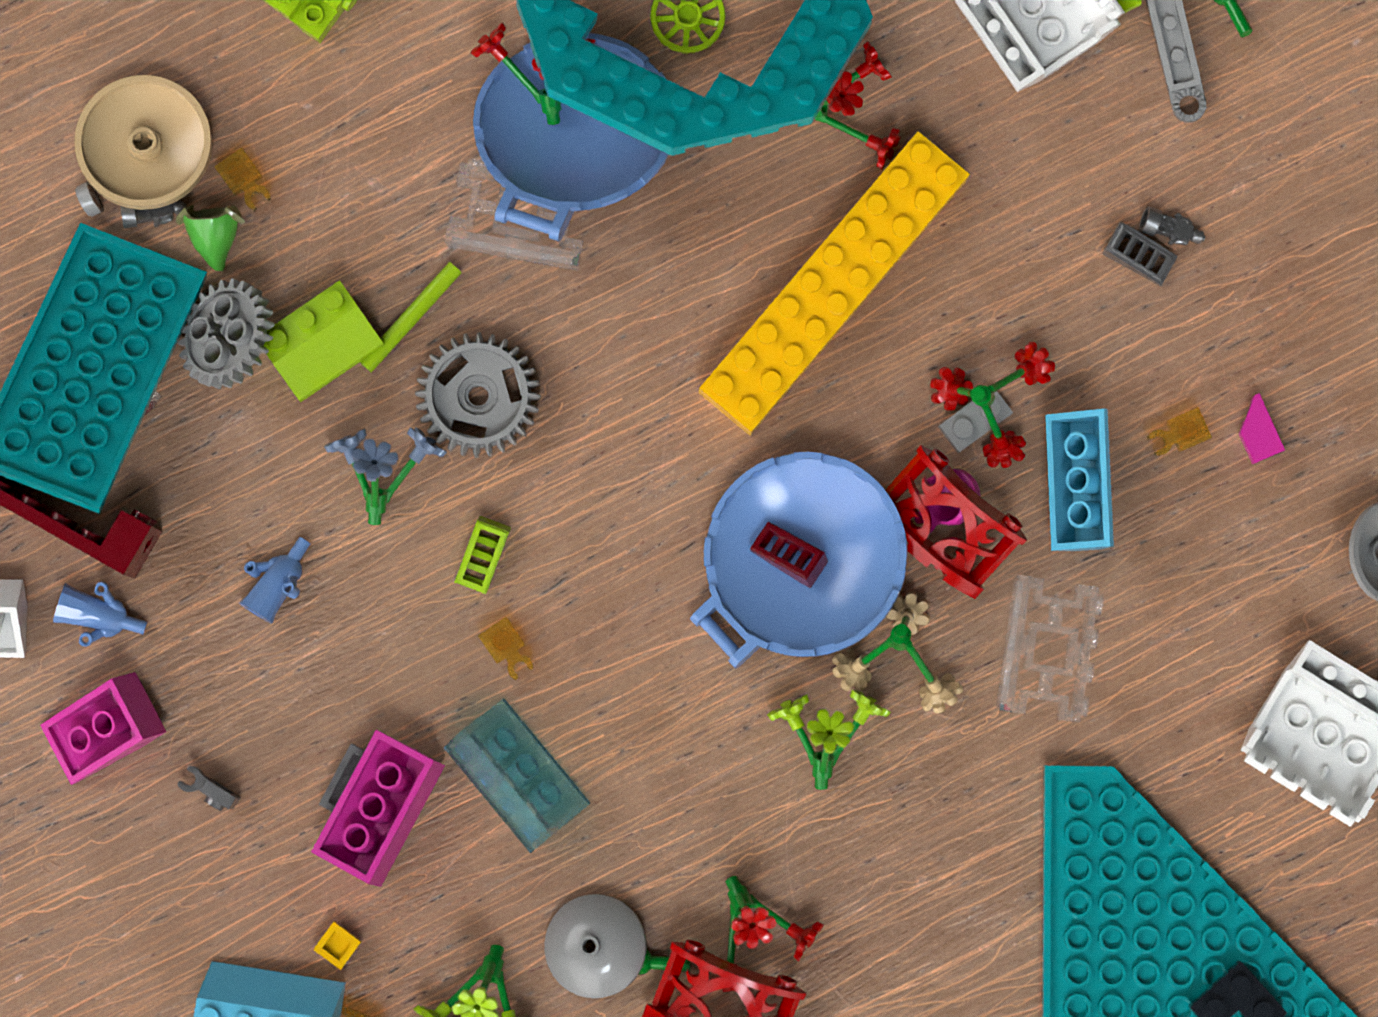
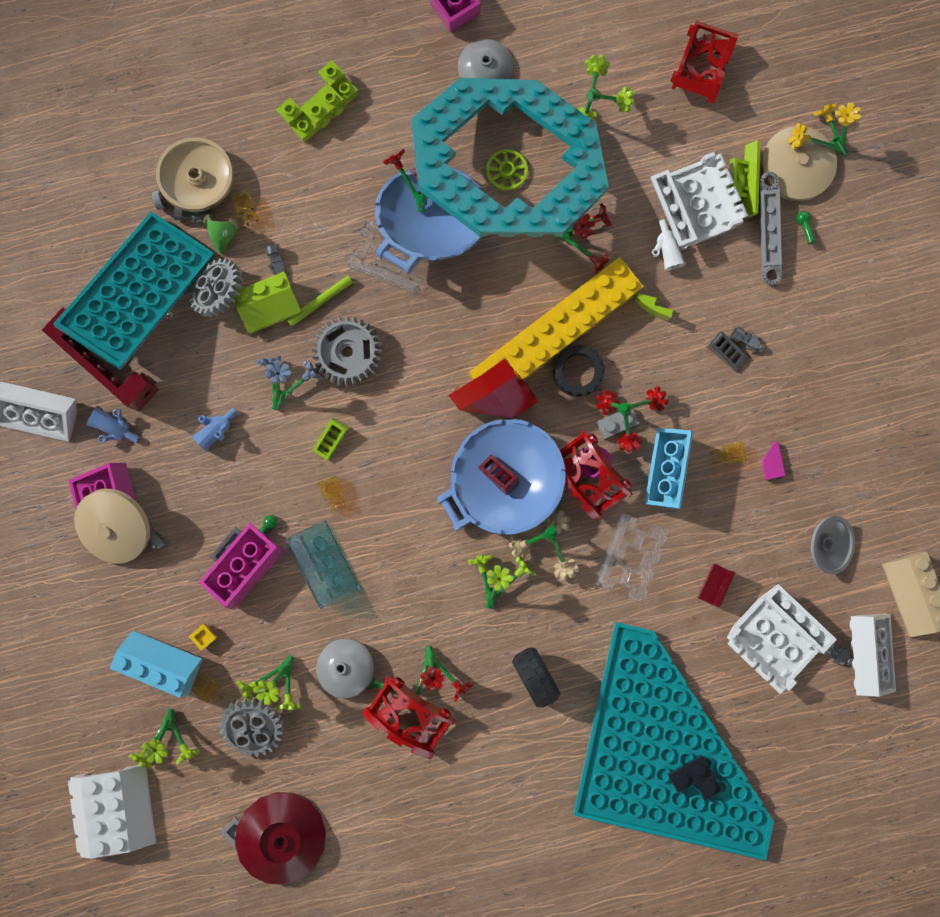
camera: 15 degrees right, 0 degrees up
(139, 786) = (112, 526): none -> tan dish
(322, 271) = (277, 265): none -> flat silver piece
(408, 724) = (269, 523): none -> green bar
(754, 415) = (495, 393): none -> red panel
(888, 308) = (578, 350): none -> black tyre
(928, 888) = (536, 677): none -> black tyre
(985, 202) = (648, 304): none -> lime slope
(1007, 104) = (671, 251): none -> white piece
(1204, 665) = (716, 585): none -> dark red panel

